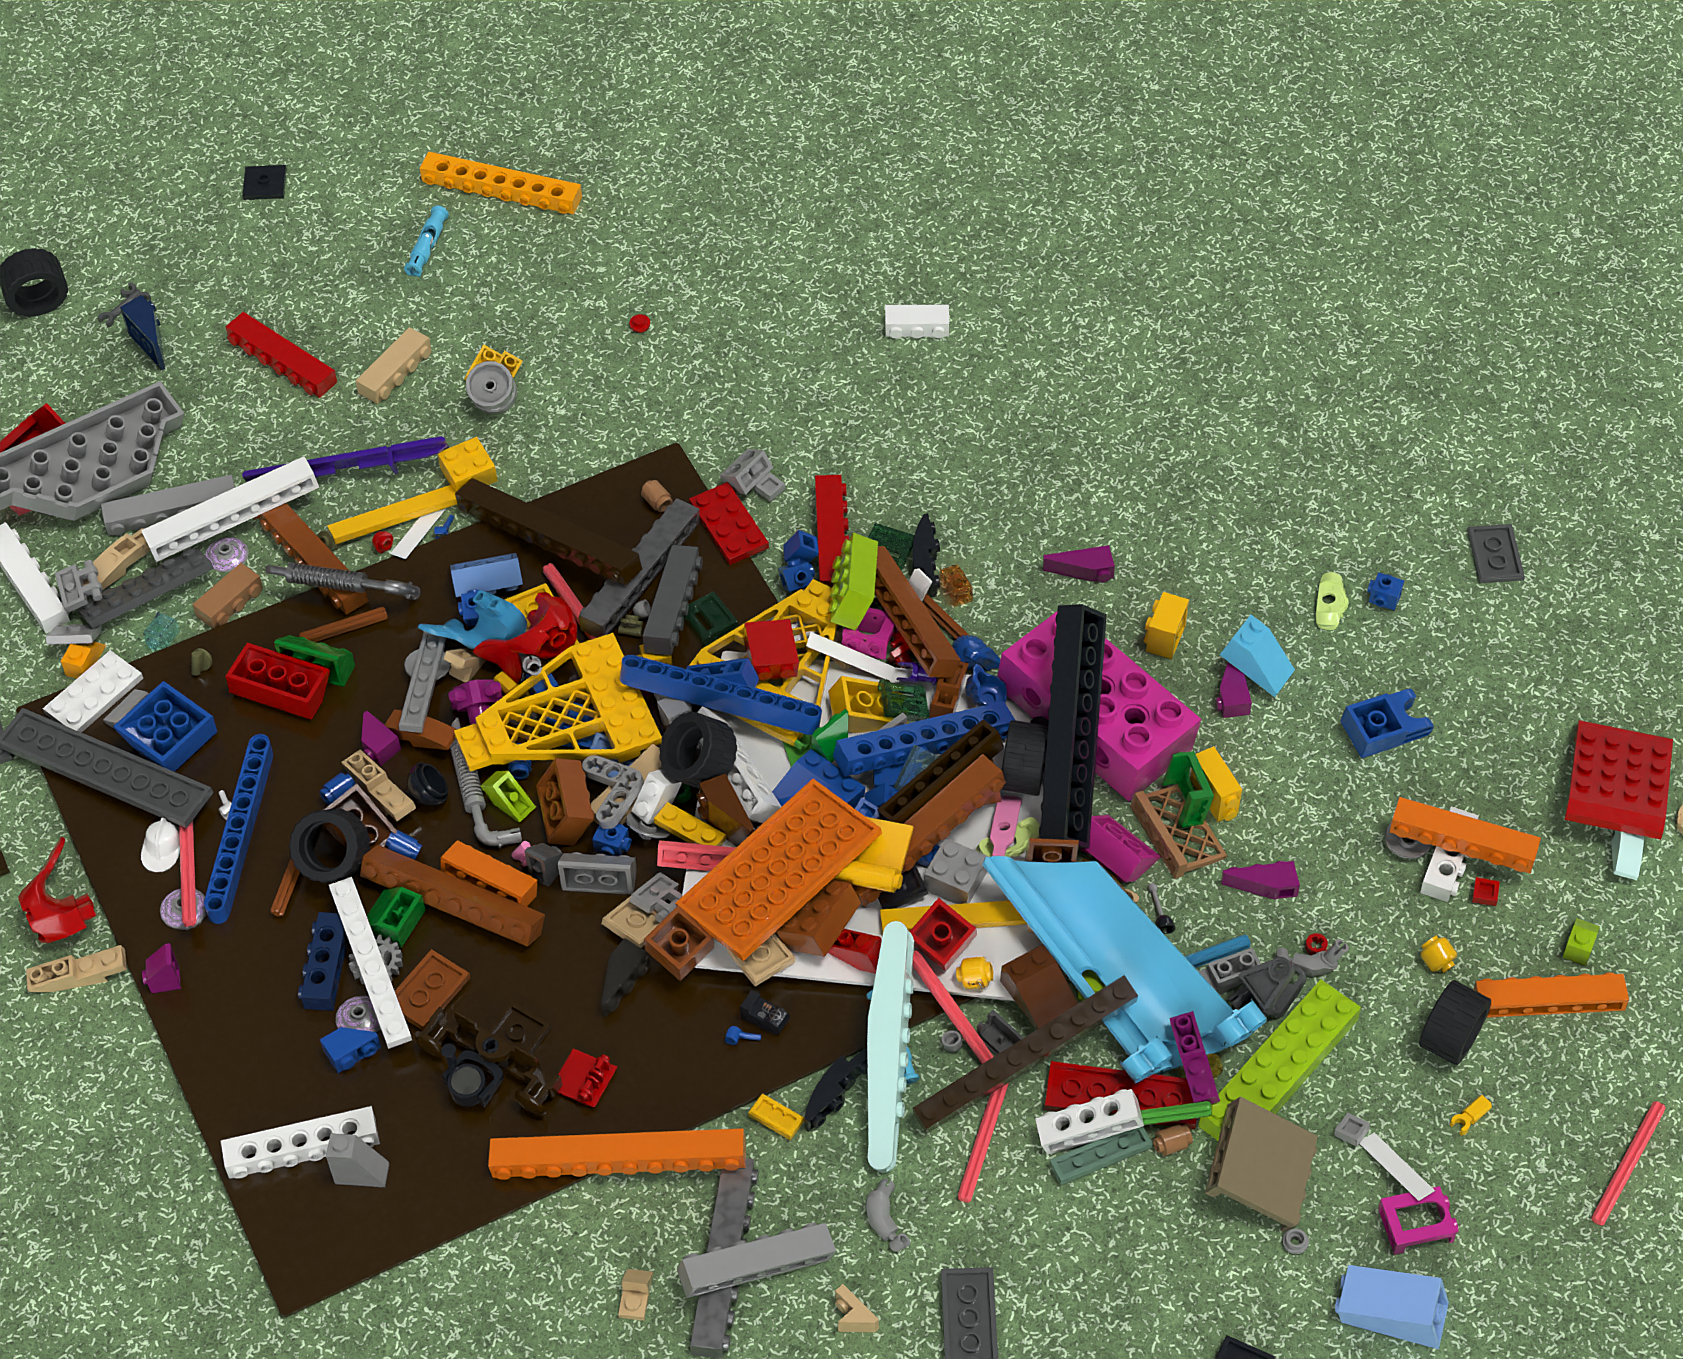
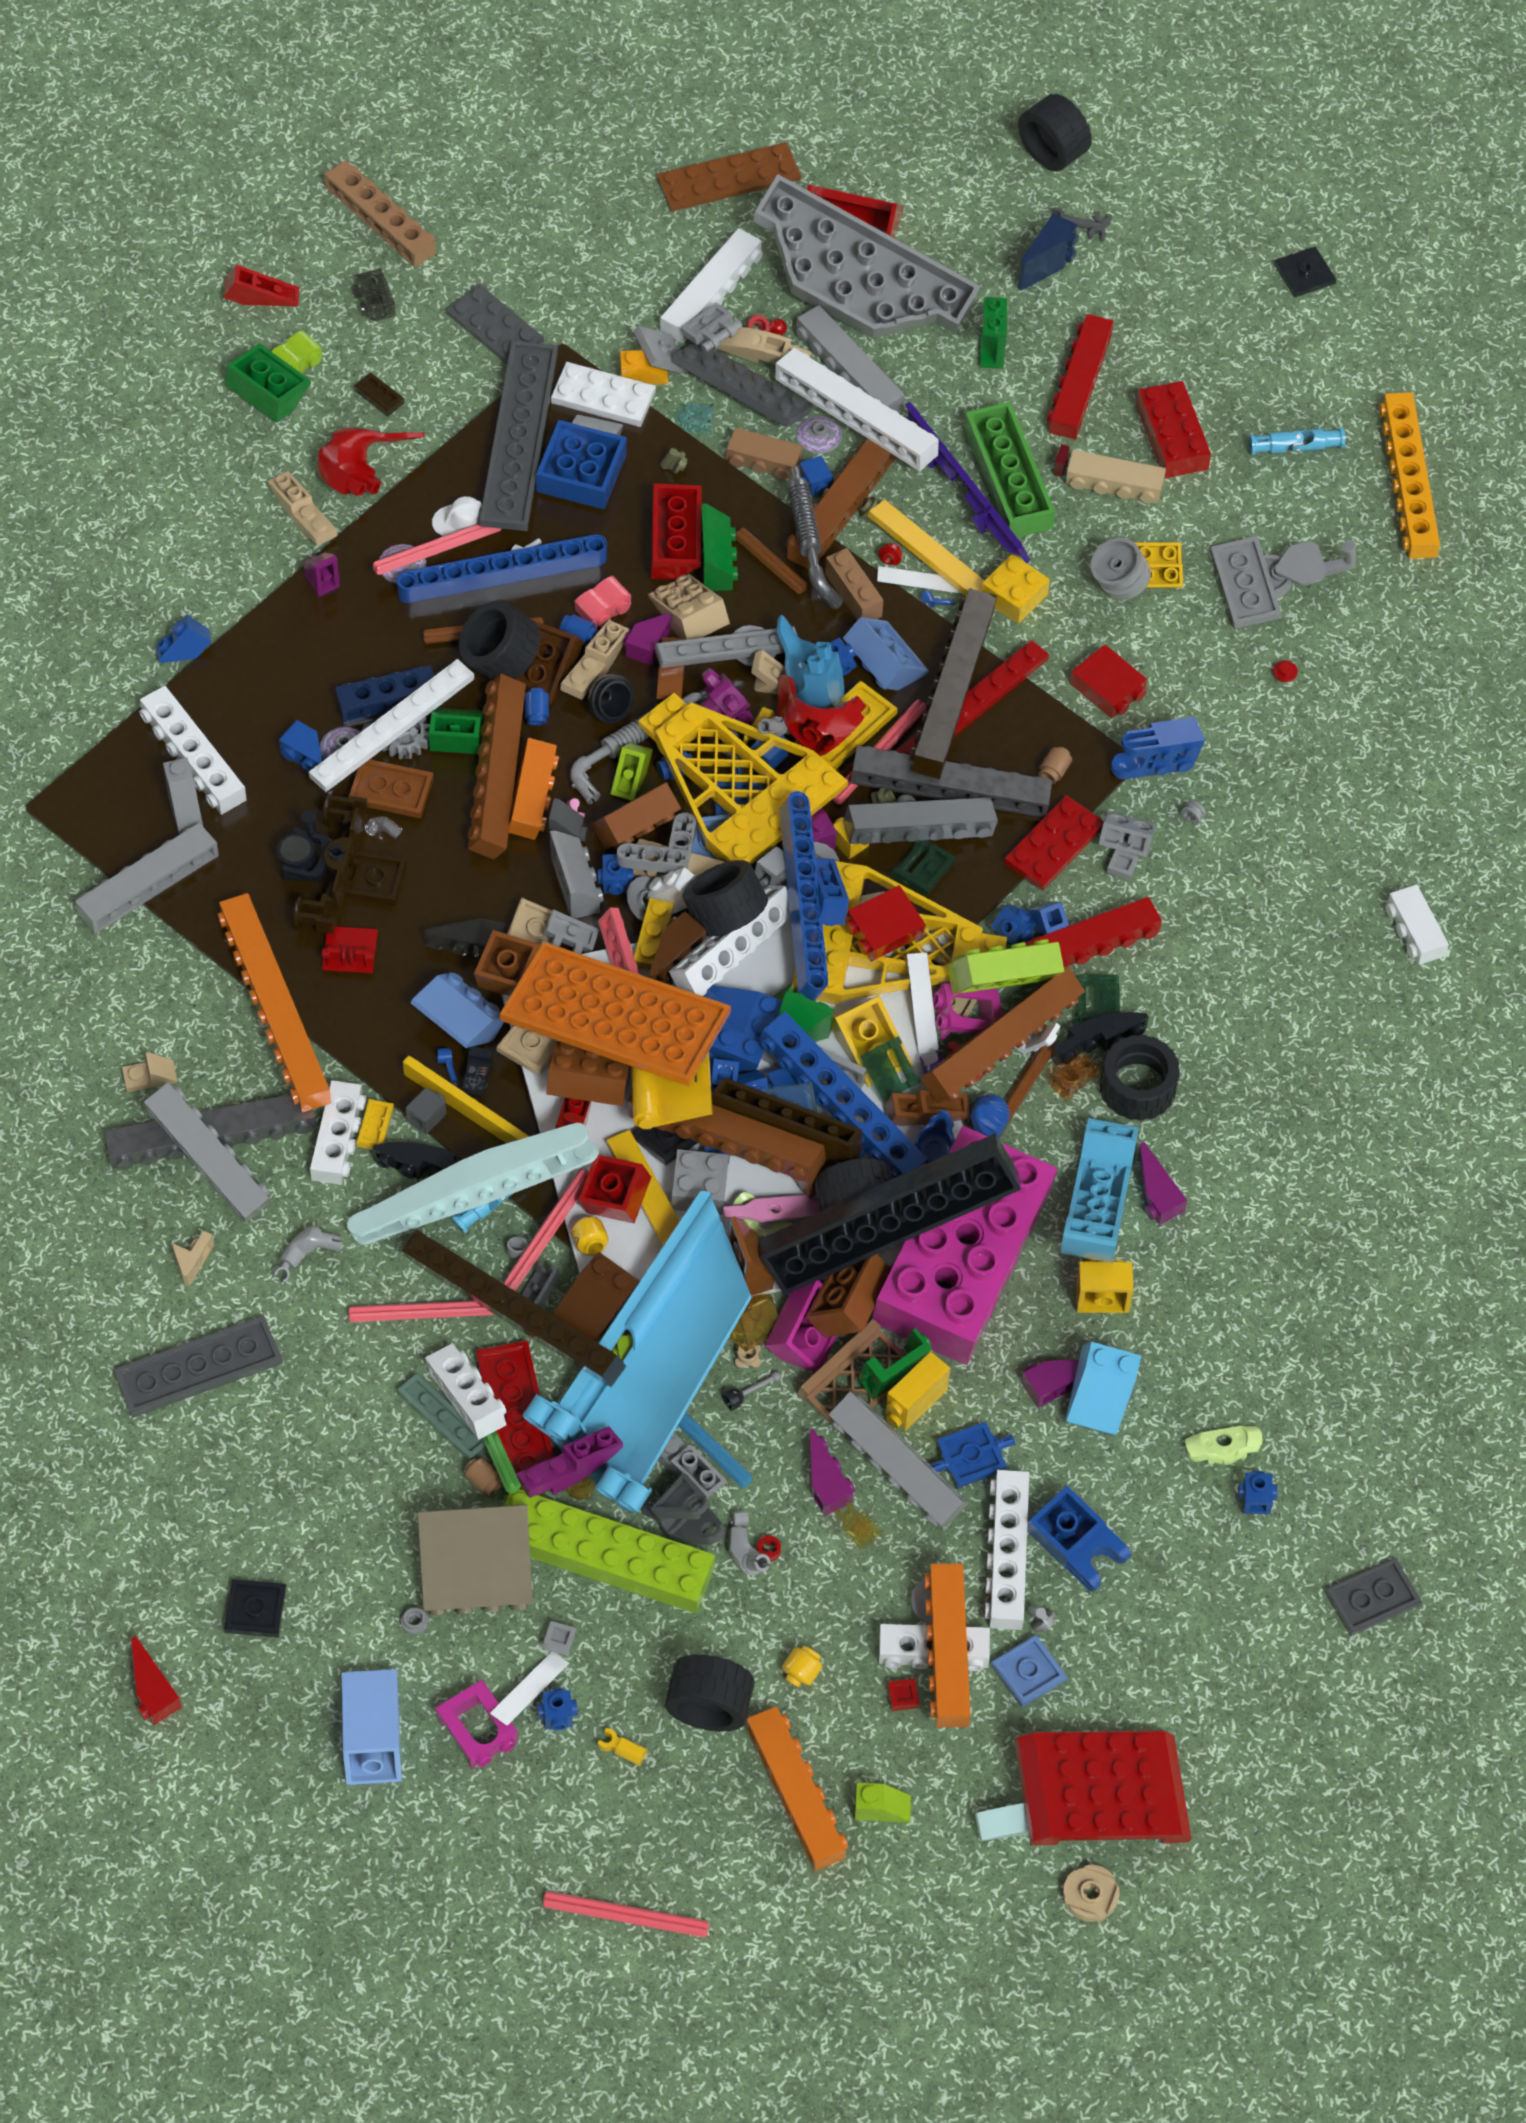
camera: 65 degrees right, 5 degrees up
(96, 548) = (776, 326): none -> red plate
(171, 1116) = (184, 641): none -> blue slope
(205, 403) = (993, 333): none -> green panel
(274, 559) = (816, 474): none -> blue brick
(319, 760) = (603, 602): none -> coral brick
(343, 428) = (1009, 469): none -> bright green brick
(356, 395) = (1061, 460): none -> dark red tile
(365, 691) = (692, 607): none -> tan slope
(370, 311) = (1173, 429): none -> red brick
(421, 570) = (853, 585): none -> medium nougat brick
(424, 1225) = (146, 878): none -> light grey brick
(468, 1004) = (382, 823): none -> clear arm
(547, 306) = (1256, 580): none -> light grey plate
(552, 502) = (994, 687): none -> red plate
(591, 436) = (1109, 681): none -> red brick
(682, 419) = (1159, 749): none -> blue brick
(699, 1002) = (459, 1010): none -> medium blue slope
(743, 424) = (1193, 812): none -> light grey bush
(785, 1065) = (426, 1110): none -> dark grey brick
(794, 1032) = (462, 1102): none -> yellow tile
(800, 1172) = (343, 1097): none -> white brick
(980, 559) = (1139, 1103): none -> black tyre
(1119, 800) = (848, 1297): none -> dark orange brick
(1127, 607) = (1100, 1191): none -> medium azure slope
(1272, 819) = (898, 1459): none -> light grey brick
(1280, 771) = (972, 1454): none -> blue plate
(1319, 873) = (859, 1529): none -> clear yellow plate
(1372, 764) = (1014, 1486): none -> white brick
(1424, 1150) = (557, 1709): none -> blue brick
(1447, 771) = (1044, 1619): none -> light grey plate
(1491, 797) = (1028, 1671): none -> medium blue plate

